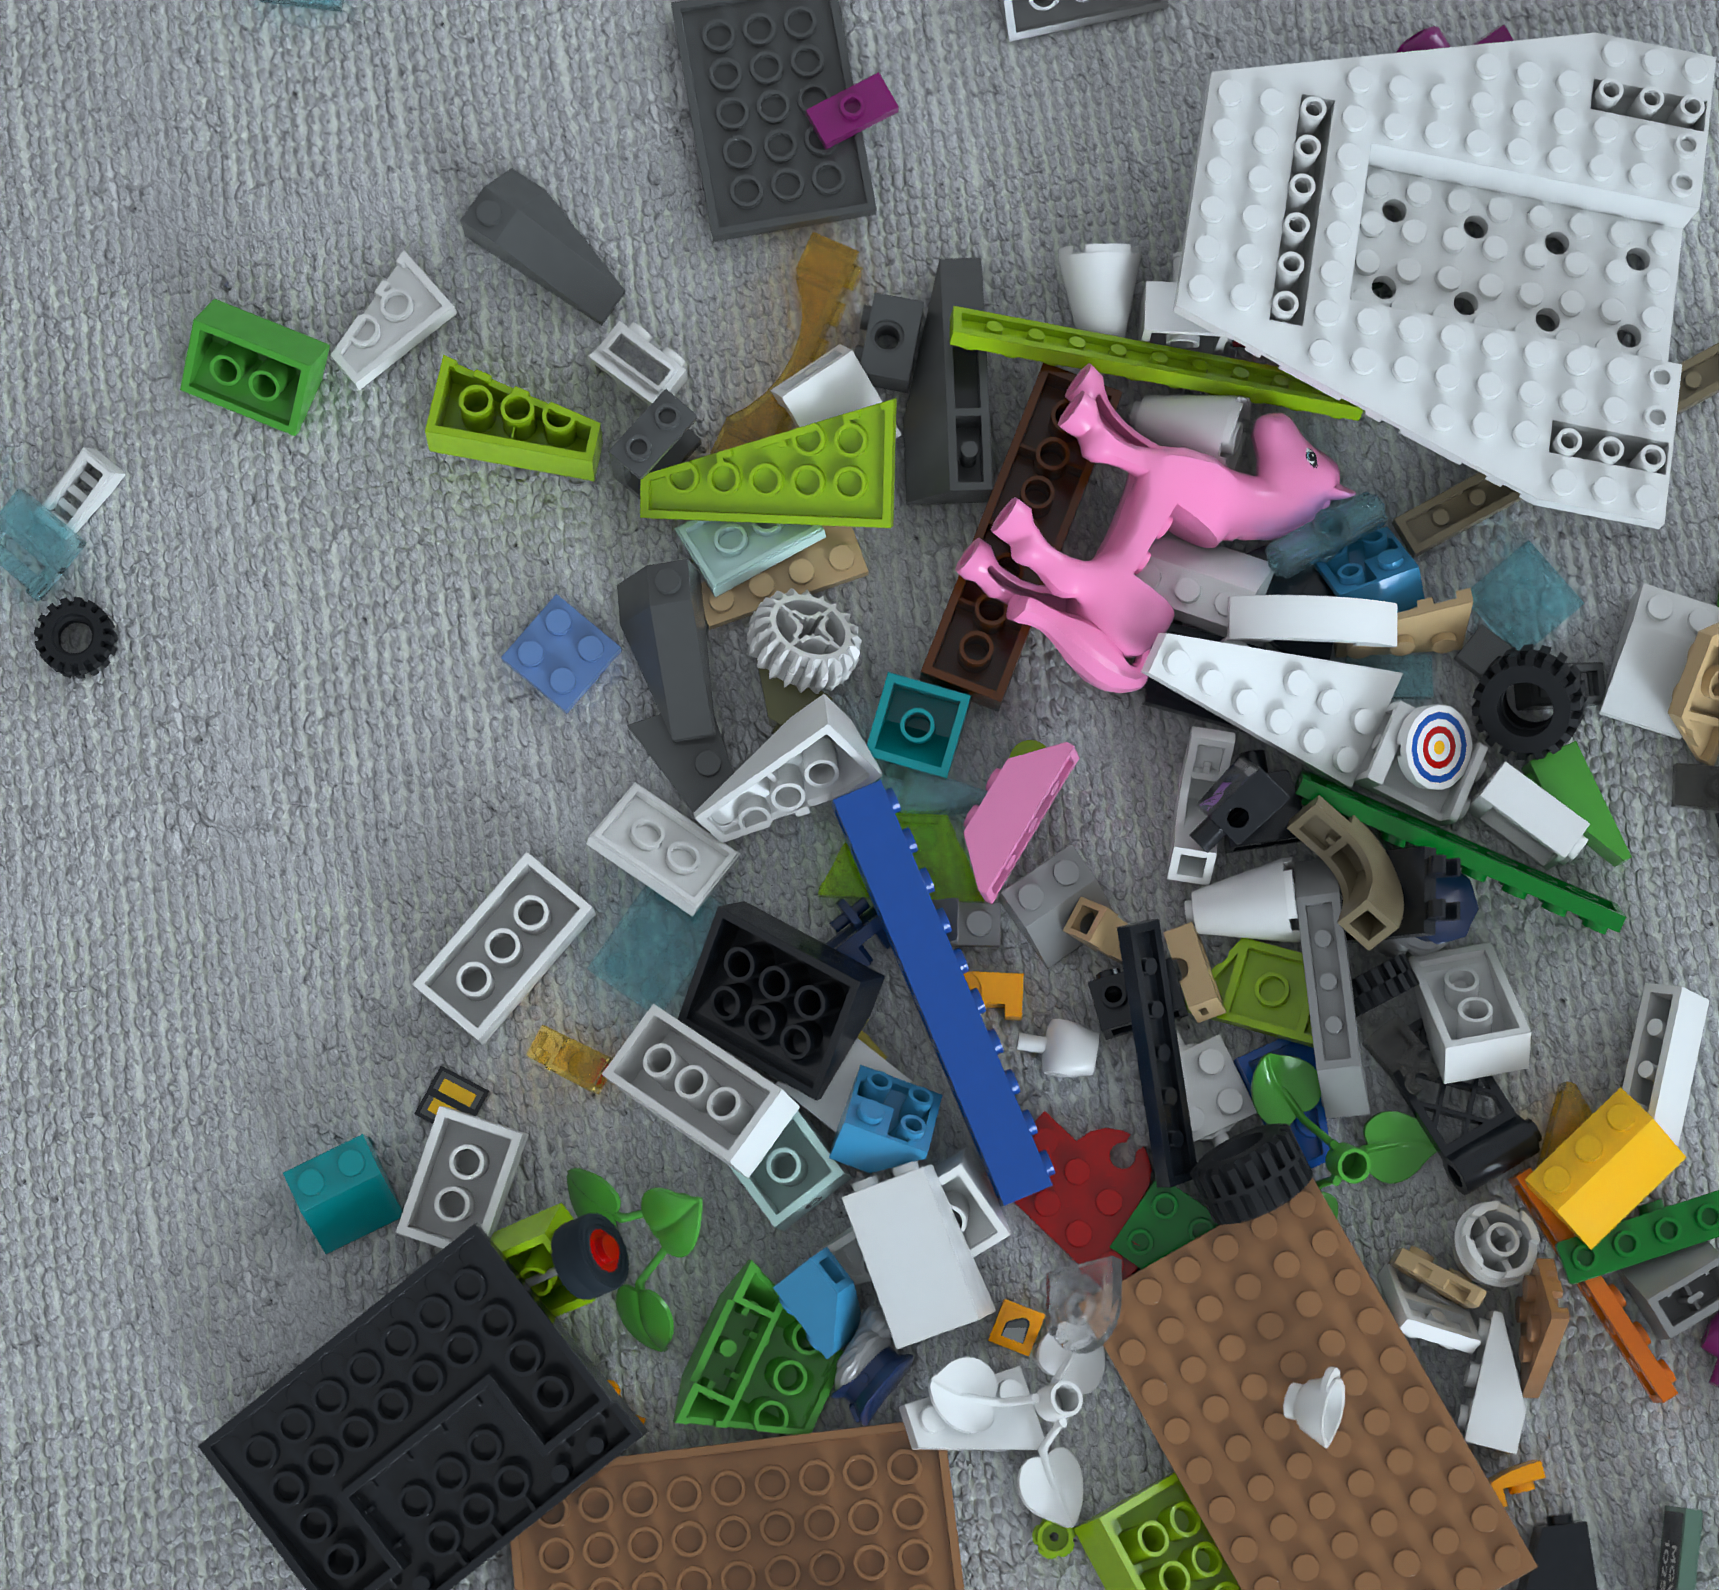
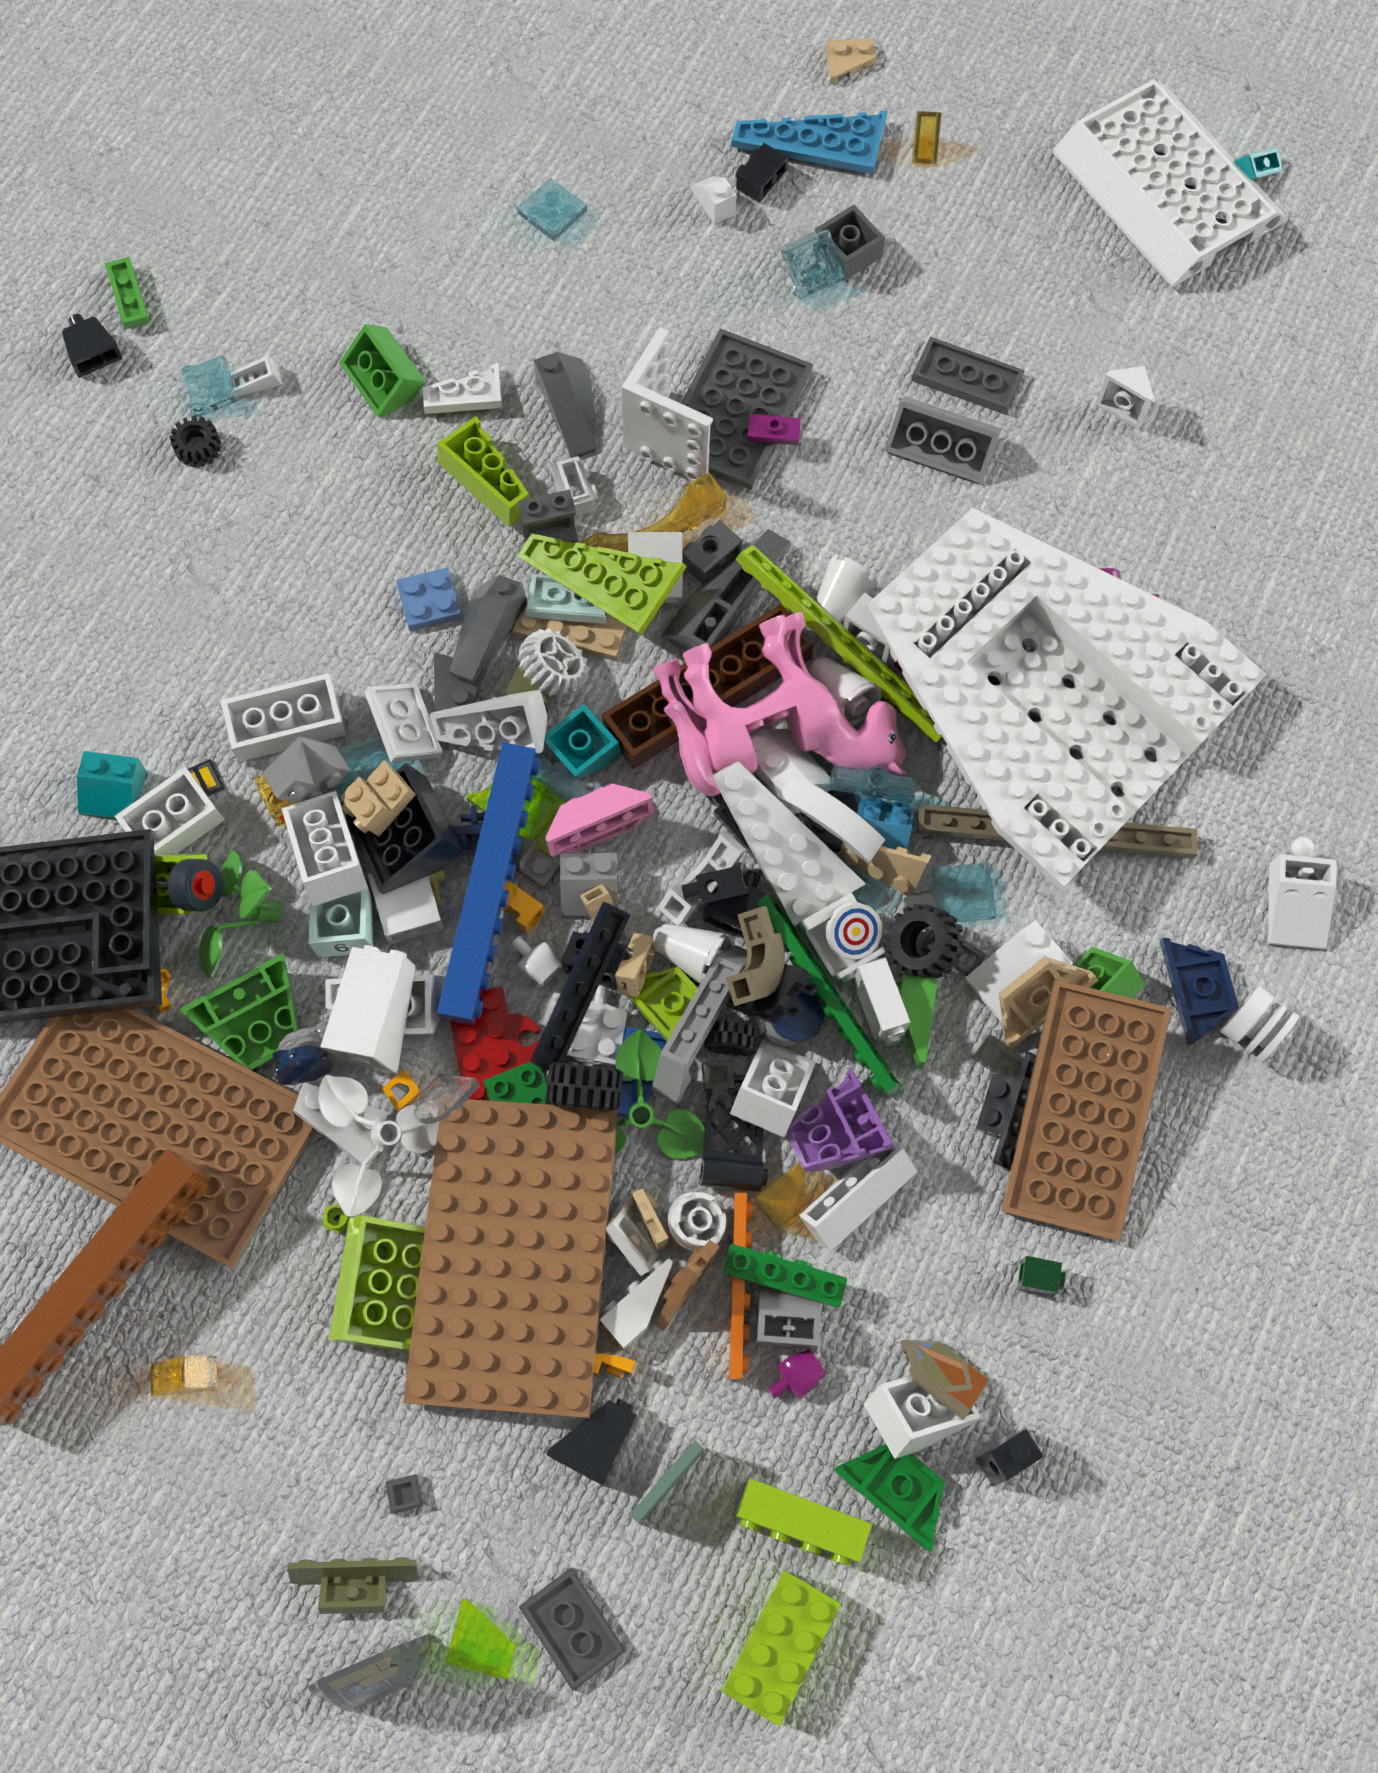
camera: 35 degrees right, 10 degrees down
(600, 1006) = (306, 770): none -> light grey slope
(717, 216) = (658, 425): none -> white bracket
(717, 978) = (377, 799): none -> tan plate
(822, 1302) = (303, 997): dark azure slope -> none
(885, 1122) = (406, 925): dark azure slope -> none
(1317, 1405) = (526, 1235): white piece -> none
(1588, 1011) = (839, 1129): none -> medium lavender wedge
(1605, 1168) = (784, 1215): yellow slope -> none

